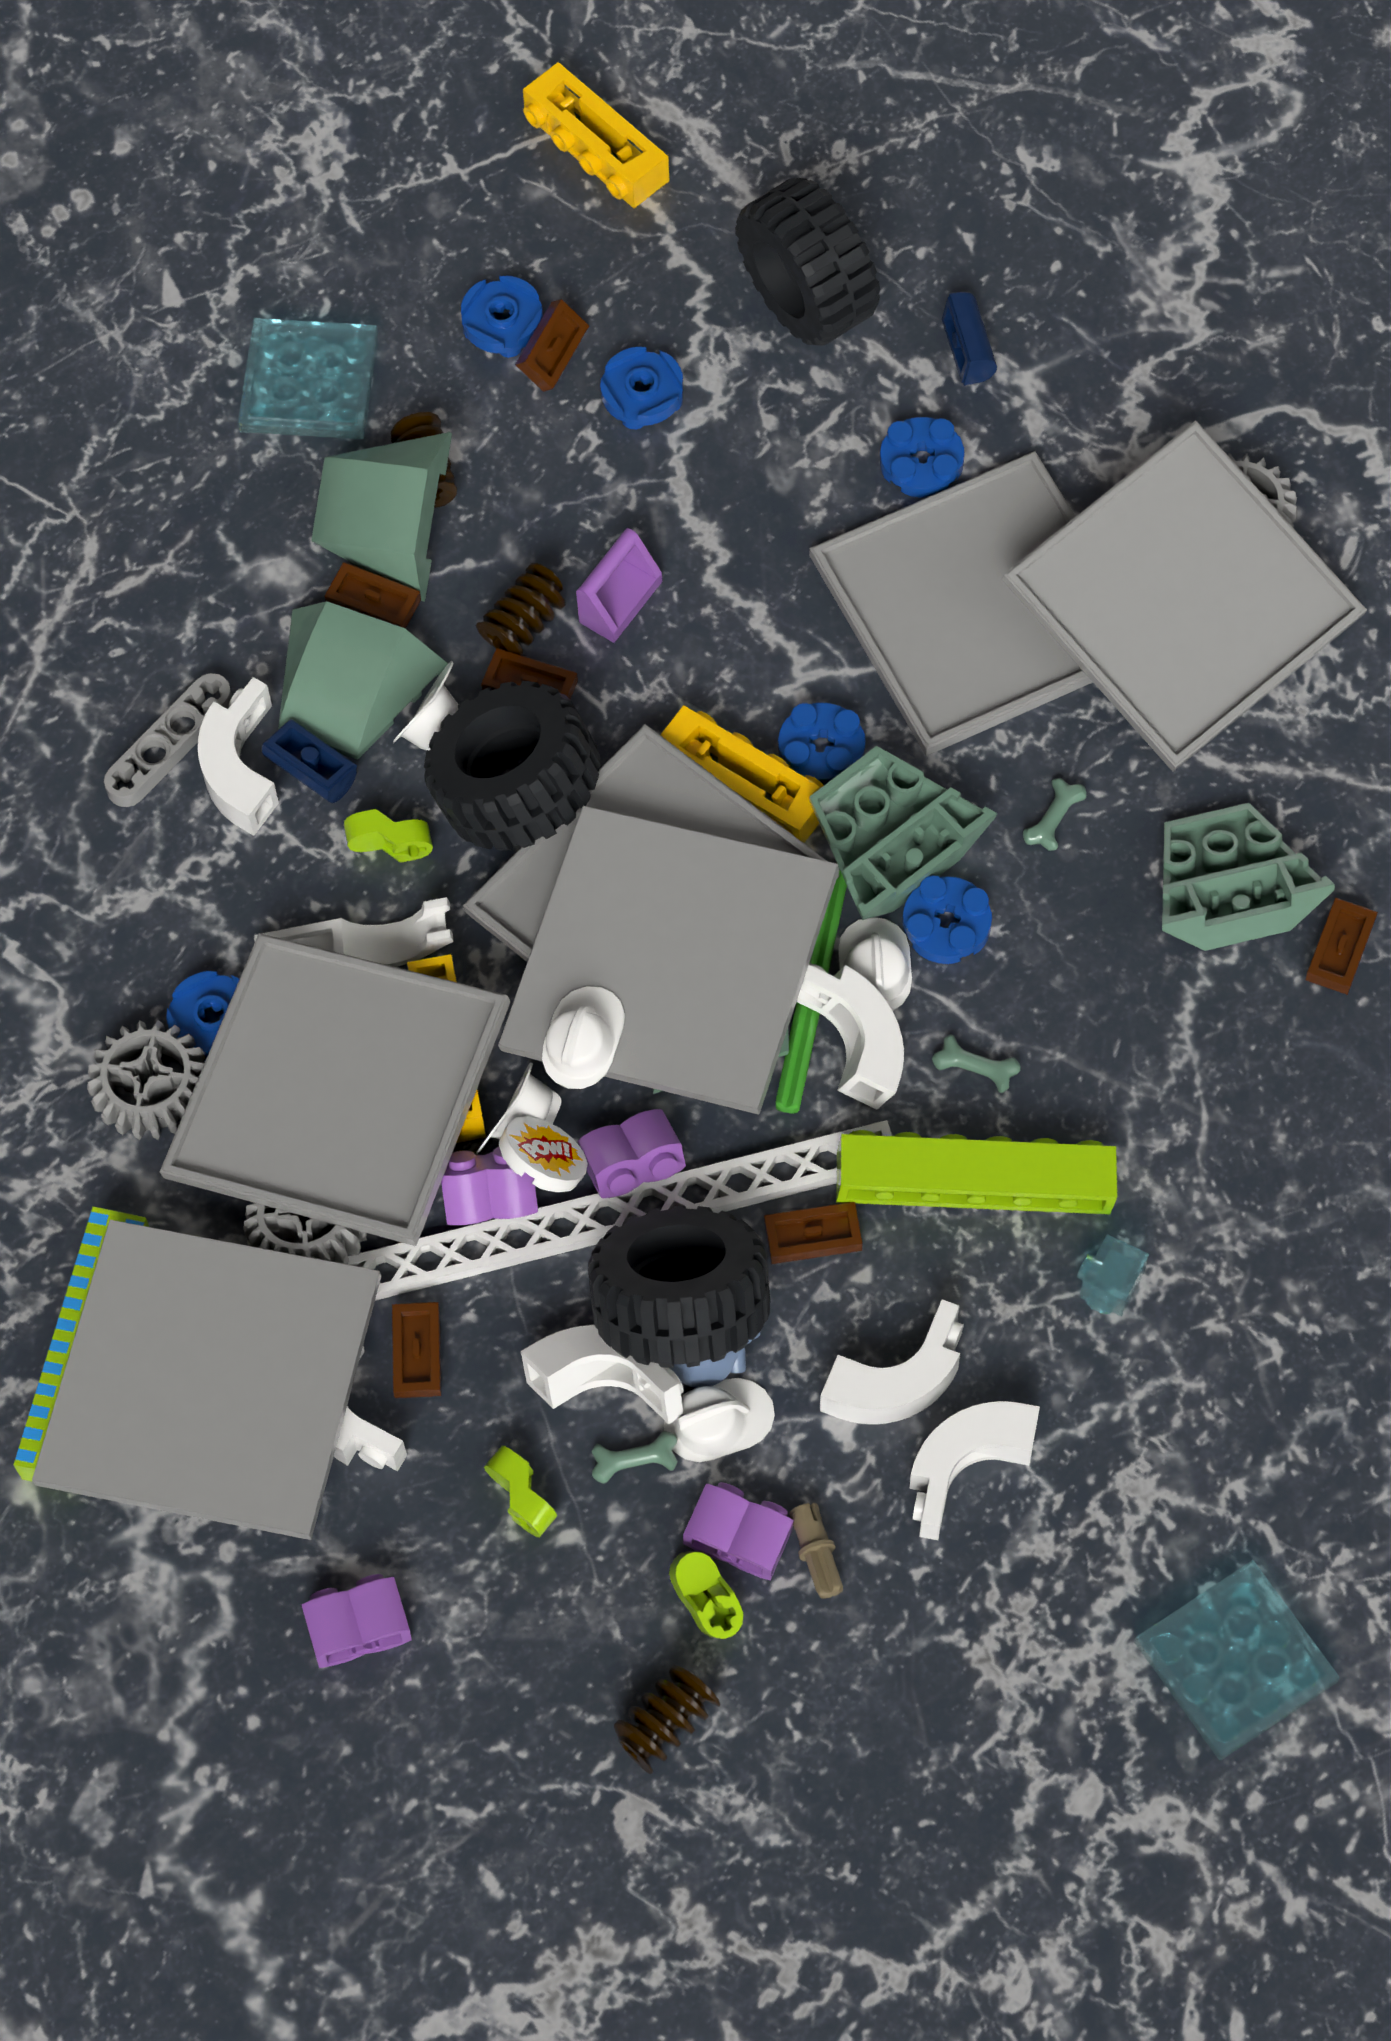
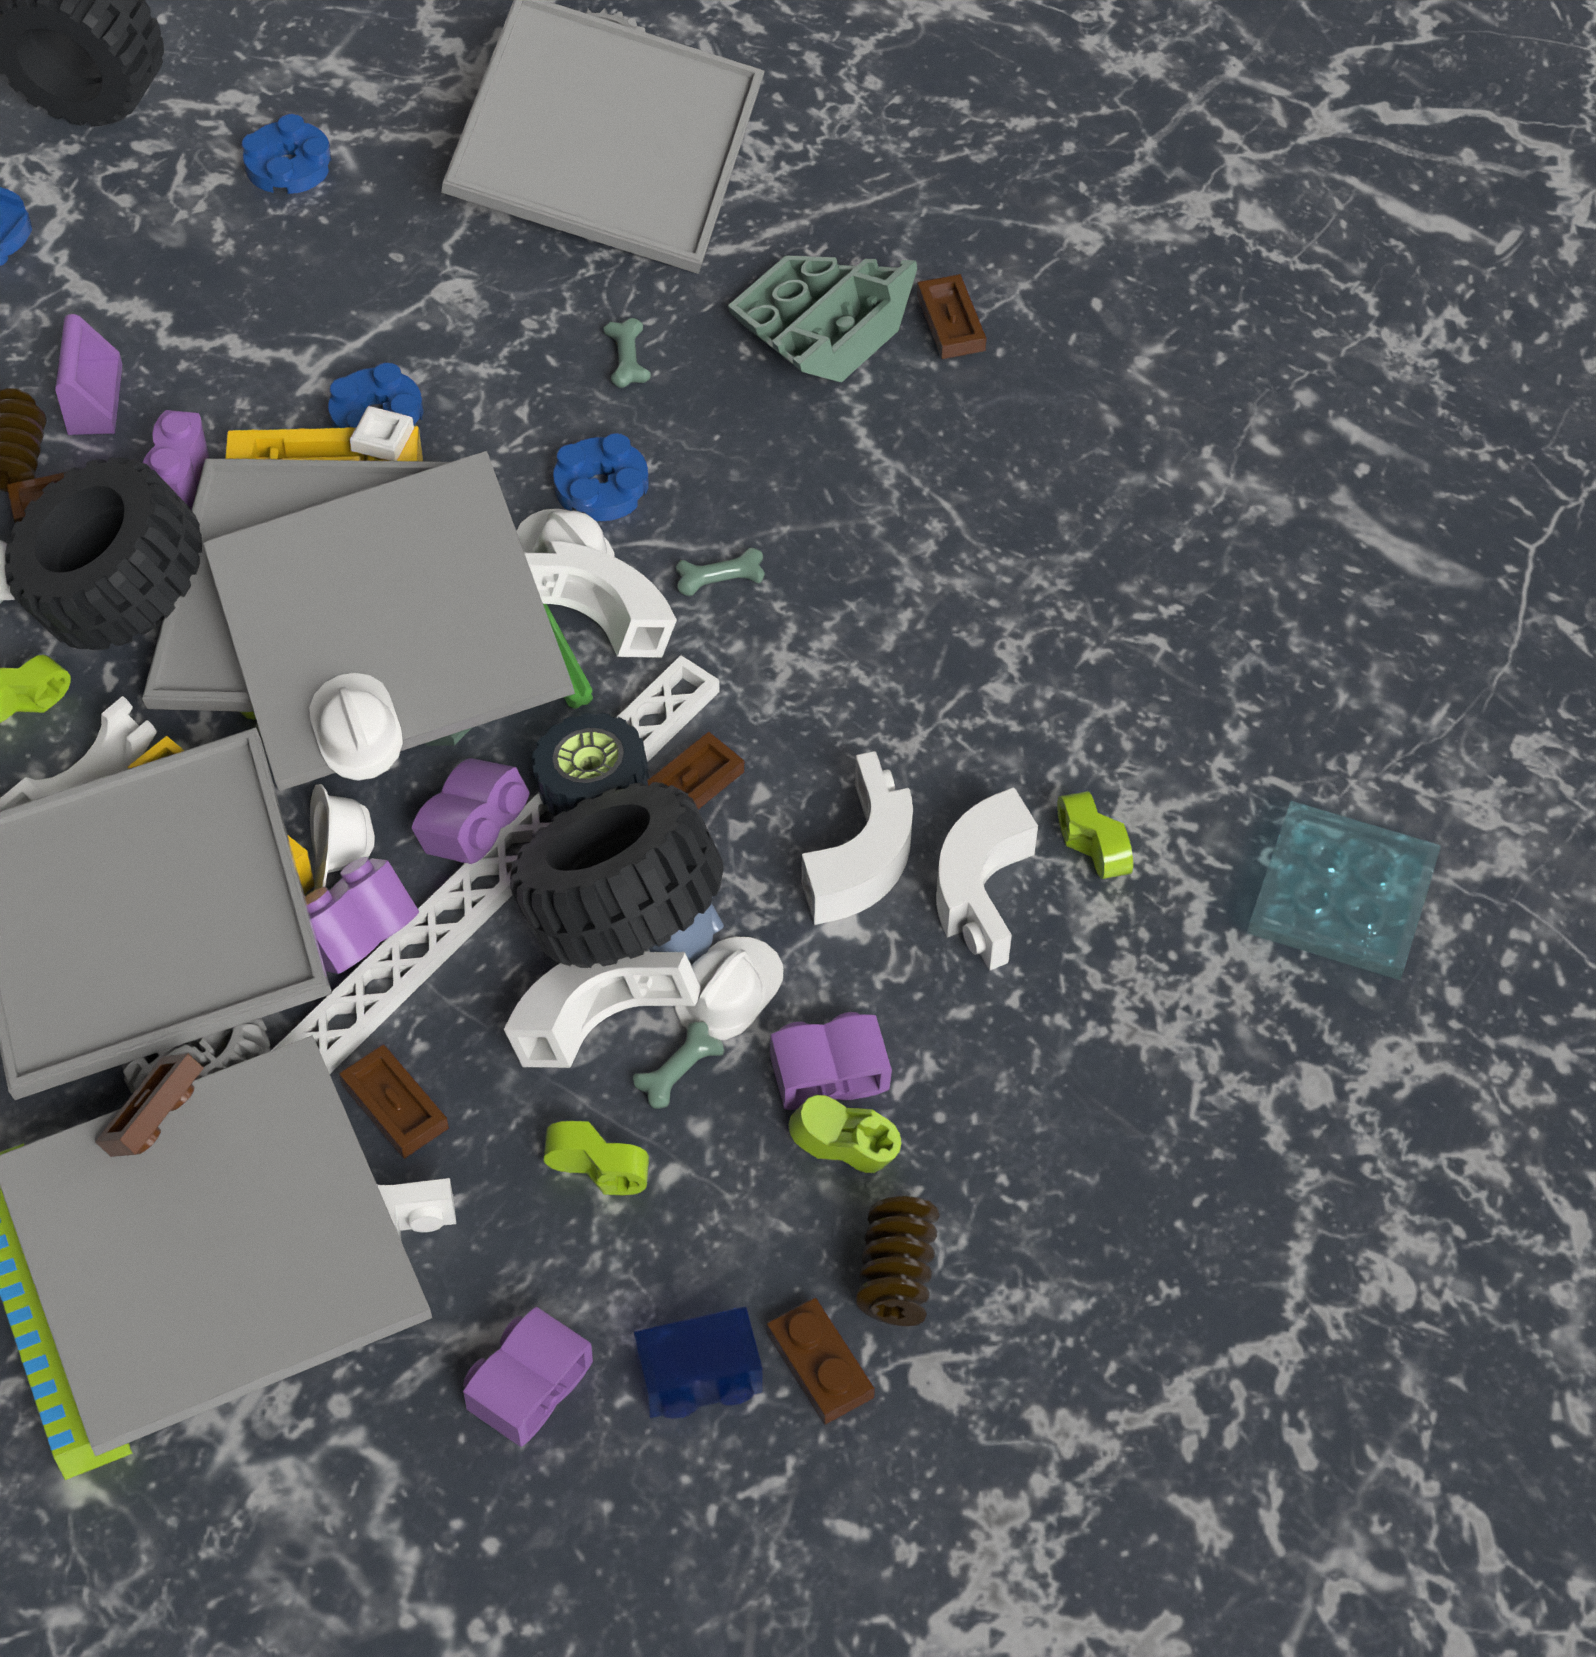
camera: 40 degrees left, 10 degrees down
(243, 1249) = (162, 1091): none -> reddish brown plate
(474, 1695) = (698, 1363): none -> clear blue brick
(543, 1153) = (387, 844): tile -> none
(562, 1750) = (820, 1361): none -> reddish brown plate
(638, 700) = (179, 452): none -> medium lavender brick
(736, 1153) = (586, 759): none -> black wheel
(792, 782) = (381, 433): none -> white tile
(816, 1549) = (915, 1033): dark tan axle -> none
(893, 829) = (508, 412): sand green wedge -> none
(934, 604) = (400, 254): light grey tile -> none
(968, 339) = (258, 53): dark blue brick -> none
(976, 1173) = (796, 646): lime brick -> none
(1082, 1488) = (1095, 835): none -> lime piece
(1112, 1275) = (981, 658): clear light blue brick -> none

